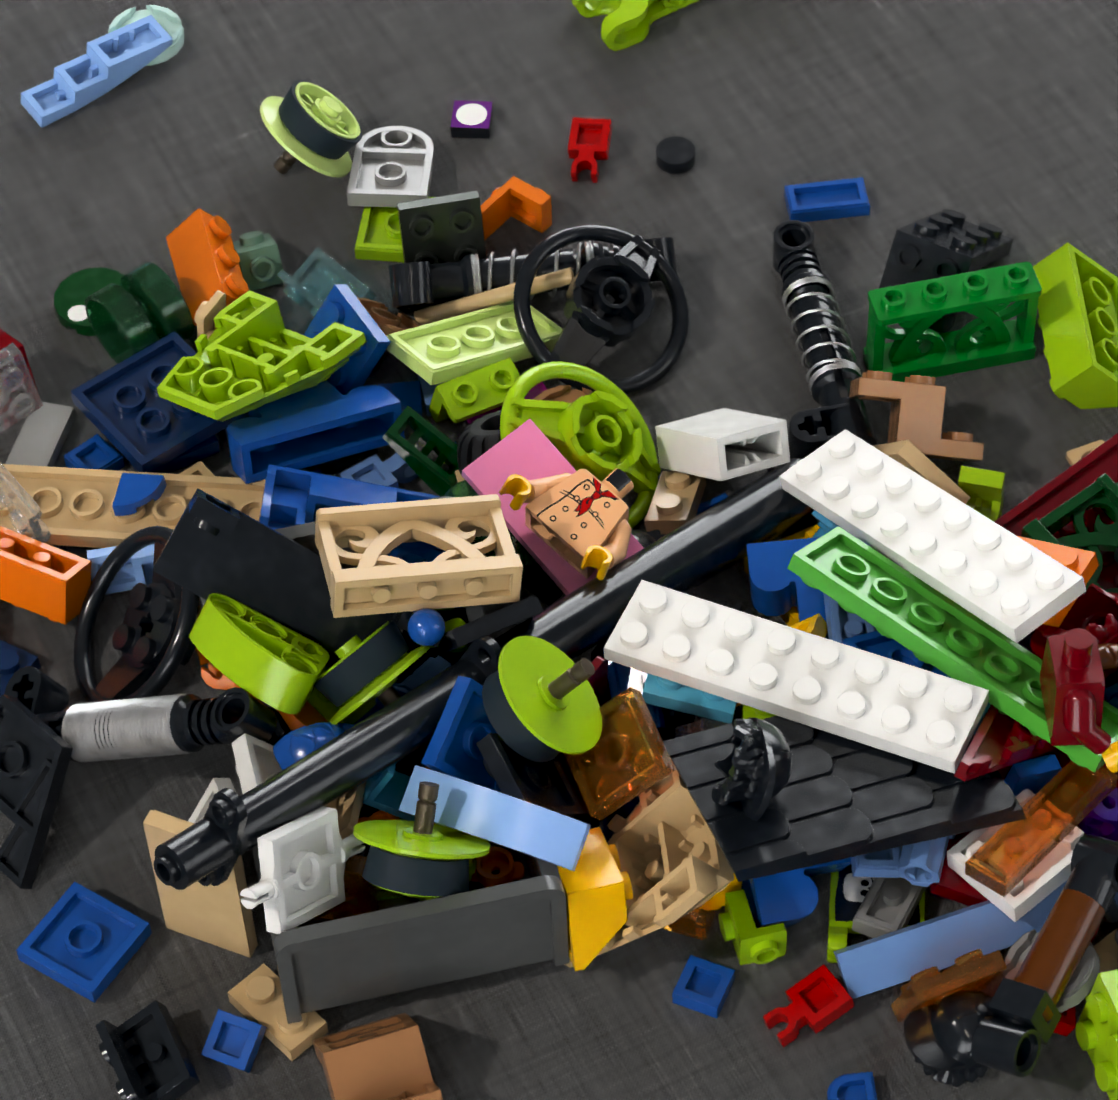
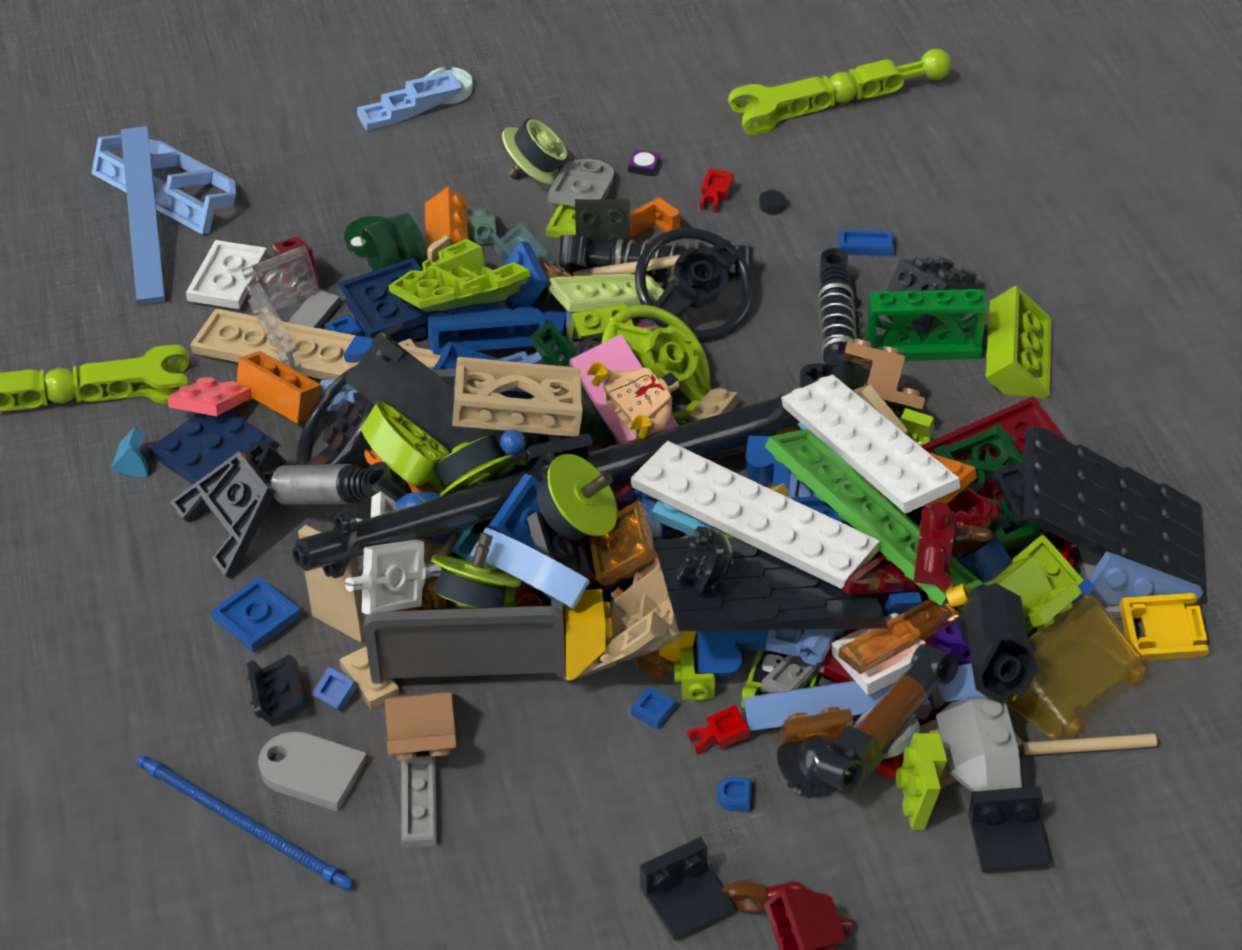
camera: 10 degrees right, 5 degrees down
(723, 444) = (751, 375): white brick -> none

